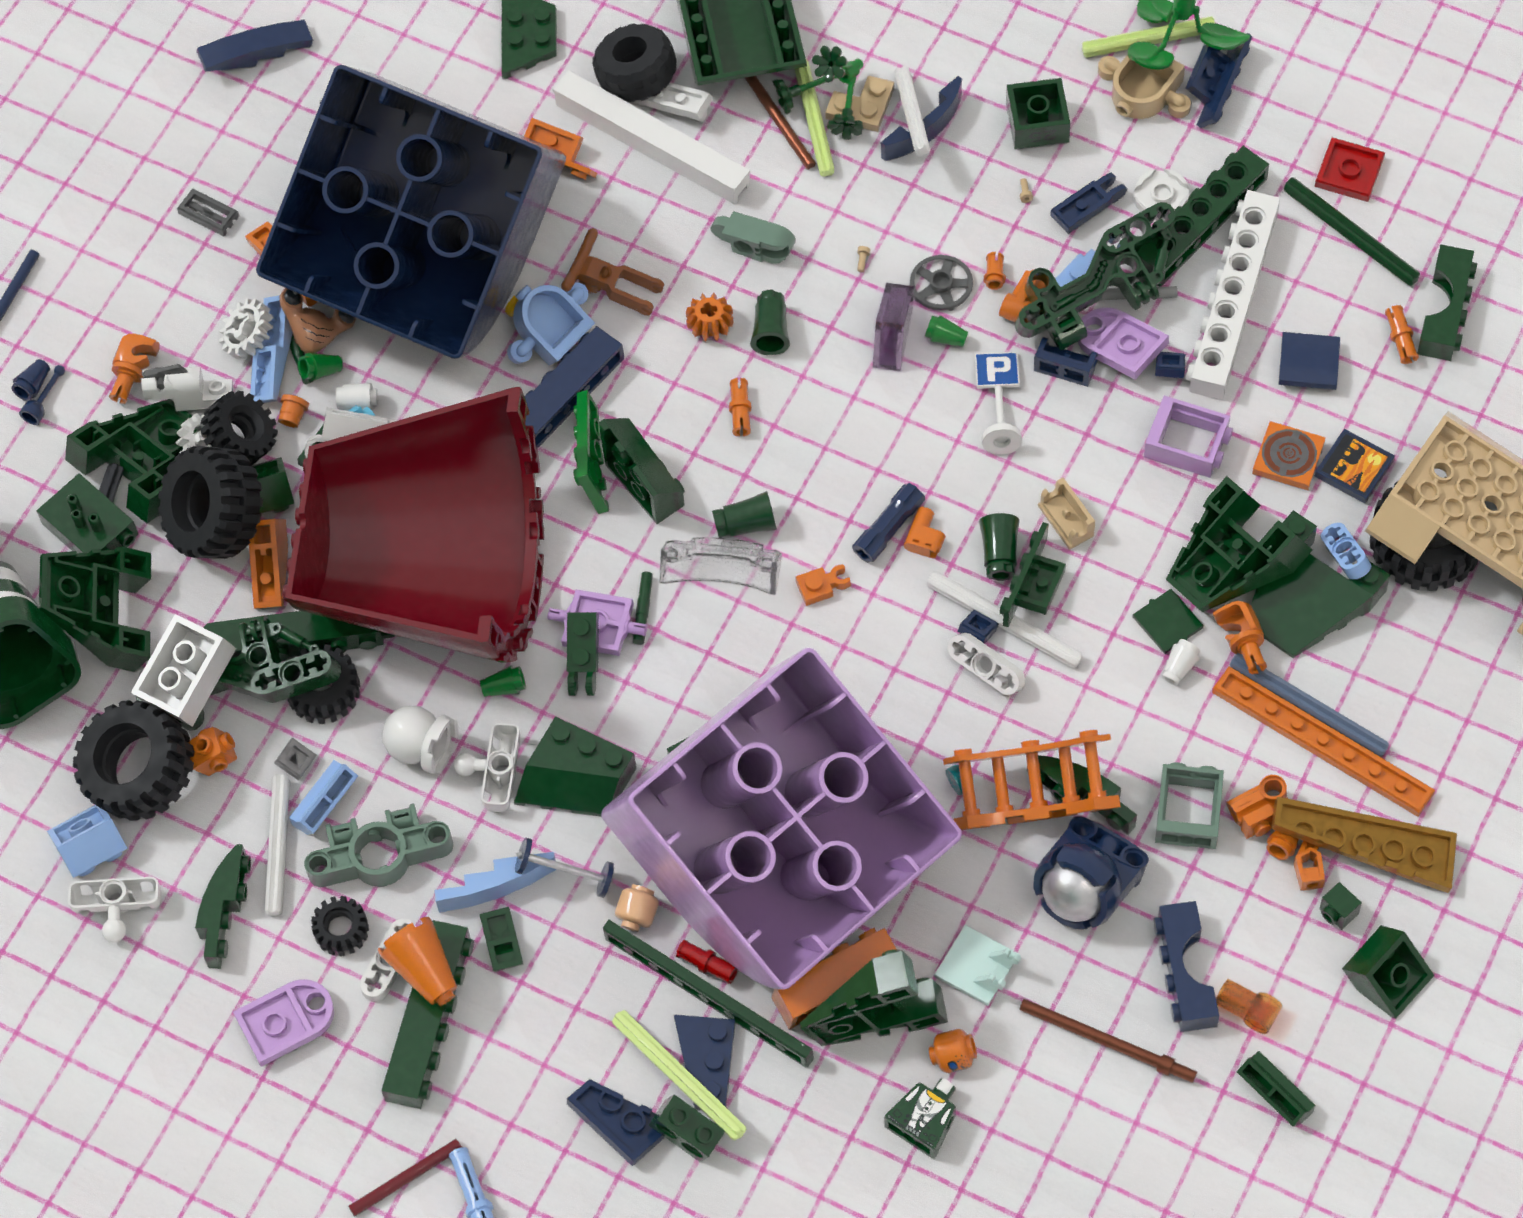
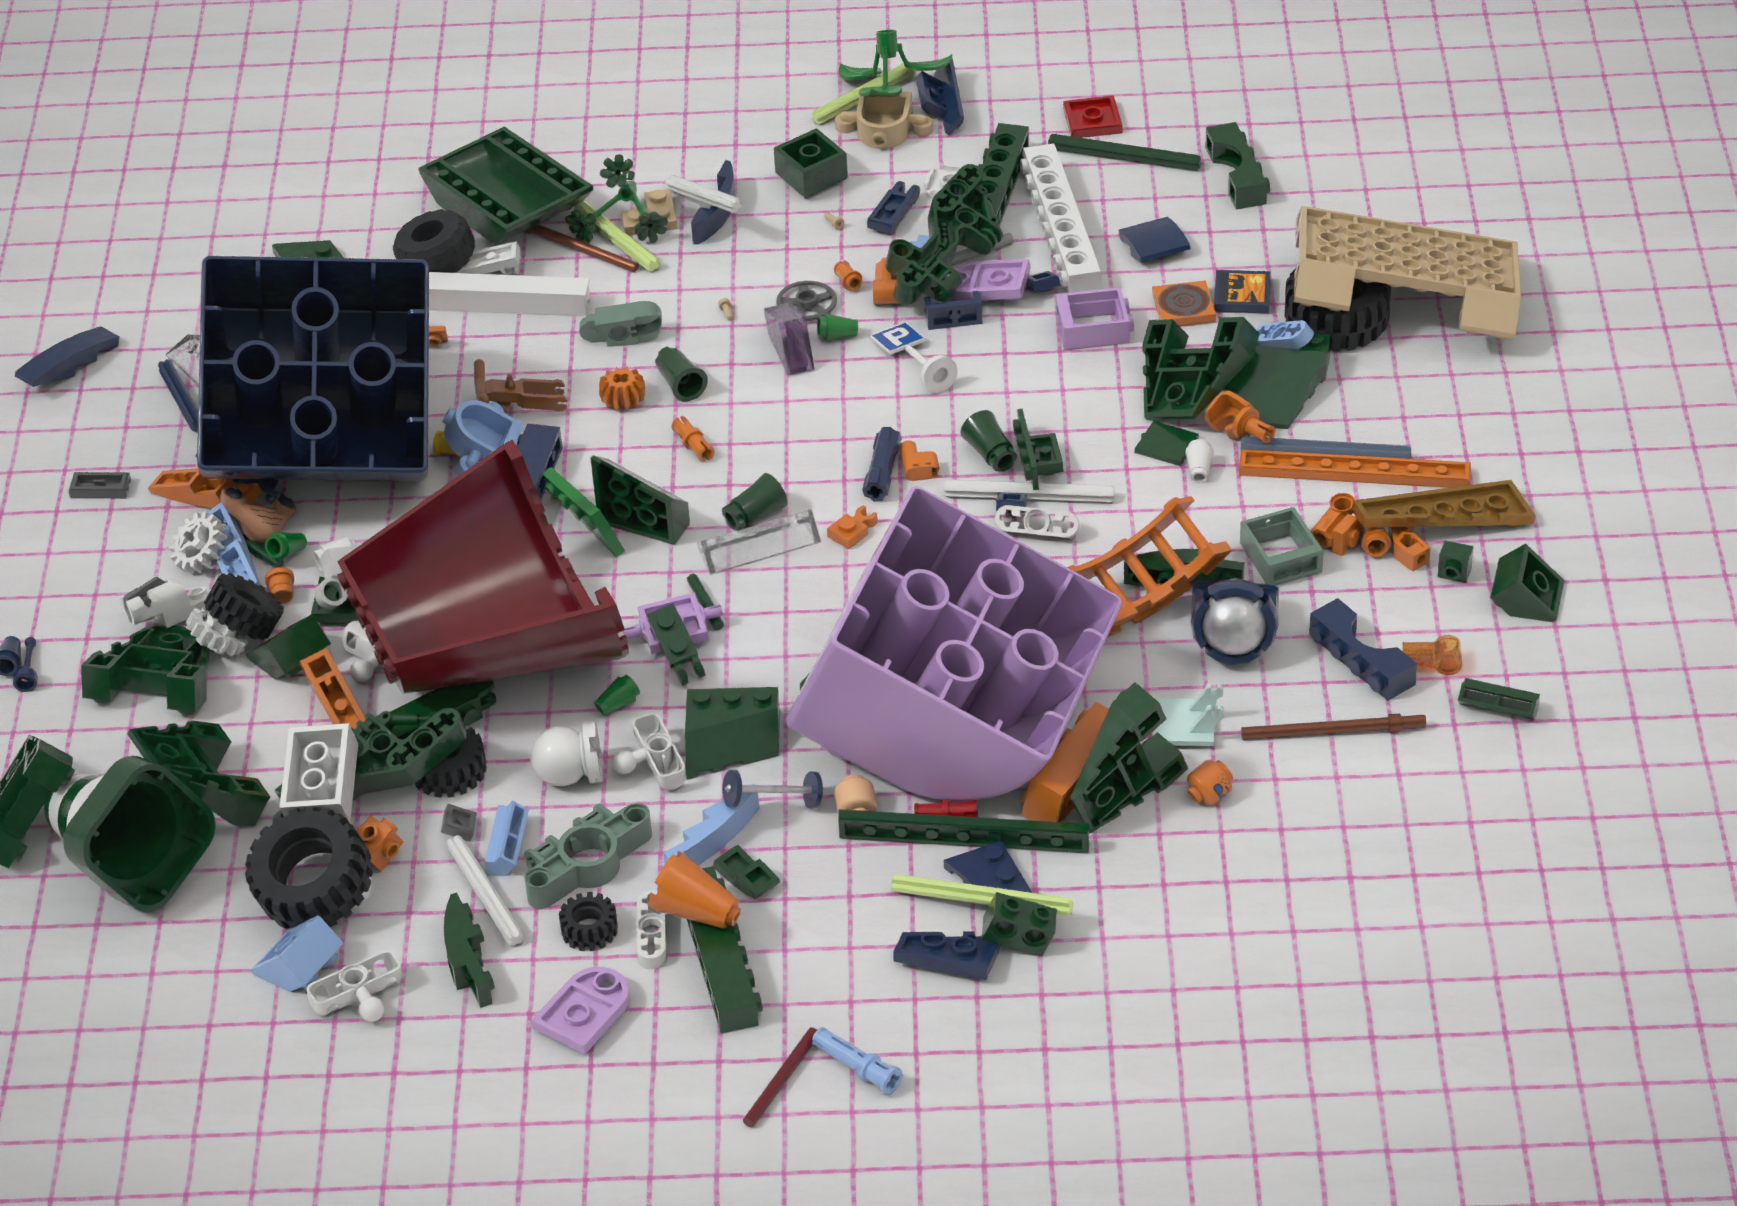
camera: 30 degrees left, 20 degrees down
(87, 516) = (107, 733): dark green piece -> none
(128, 366) = (101, 606): orange piece -> none
(210, 502) = (227, 651): black tyre -> none
(923, 1116) = (1218, 838): torso -> none
(1067, 514) = (1039, 402): tan hinge -> none
(1401, 334) = (1216, 197): orange pin -> none

